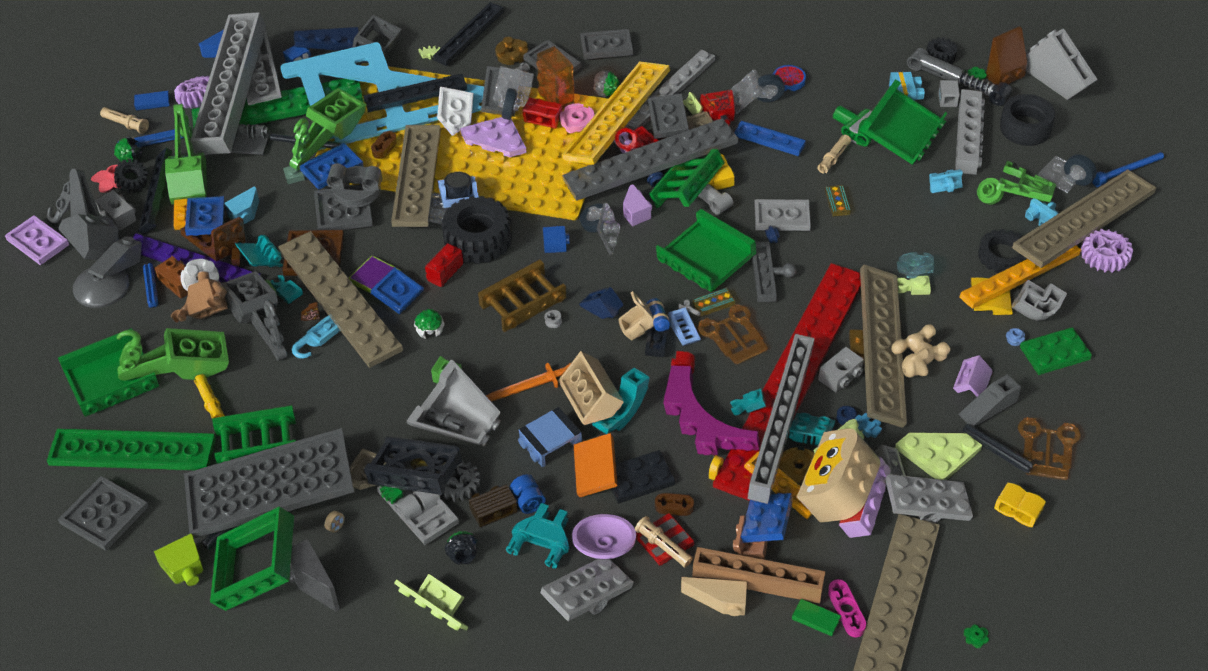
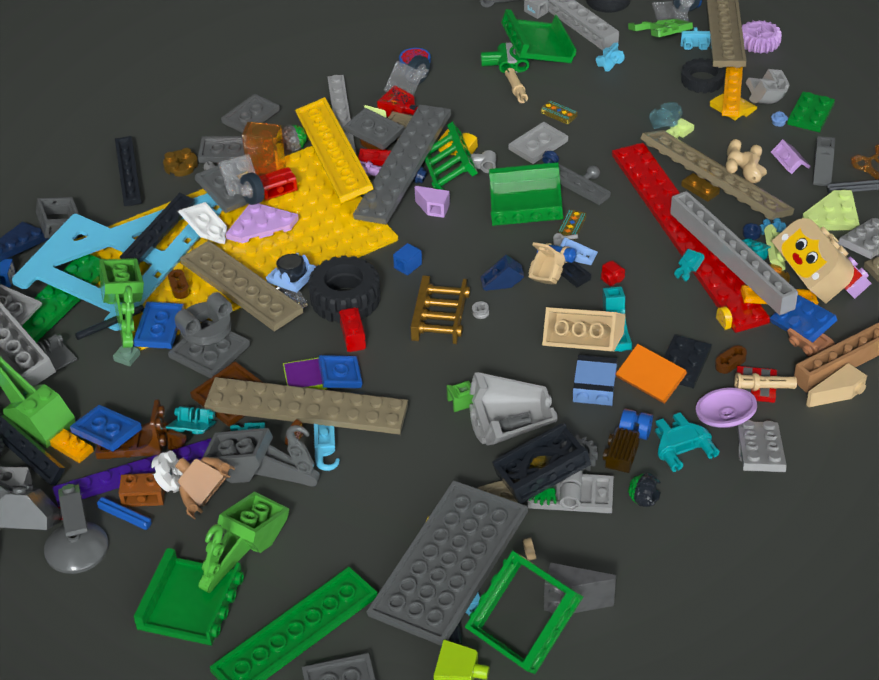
camera: 45 degrees left, 5 degrees down
(211, 404) = (311, 551): yellow pin -> none
(243, 205) = (124, 401): medium azure slope -> none
(248, 422) = (373, 528): green fence -> none
(428, 53) = (111, 204): yellowish green piece -> none
(429, 321) = (399, 372): green piece -> none
(438, 597) = (675, 533): yellowish green bracket -> none
(529, 383) = (533, 346): orange sword -> none
(574, 124) = (307, 171): bright pink plate -> none
(601, 220) = (422, 223): clear plate -> none
(636, 142) = (375, 157): red piece -> none
(694, 420) = (673, 298): magenta arch -> none
(726, 348) = (639, 237): clear orange piece -> none
(770, 138) = (464, 101): blue plate -> none
(841, 370) = (715, 202): light grey brick -> none
(909, 85) = (495, 15): medium azure hips -> none
(988, 193) = (647, 45): bright green plate -> none

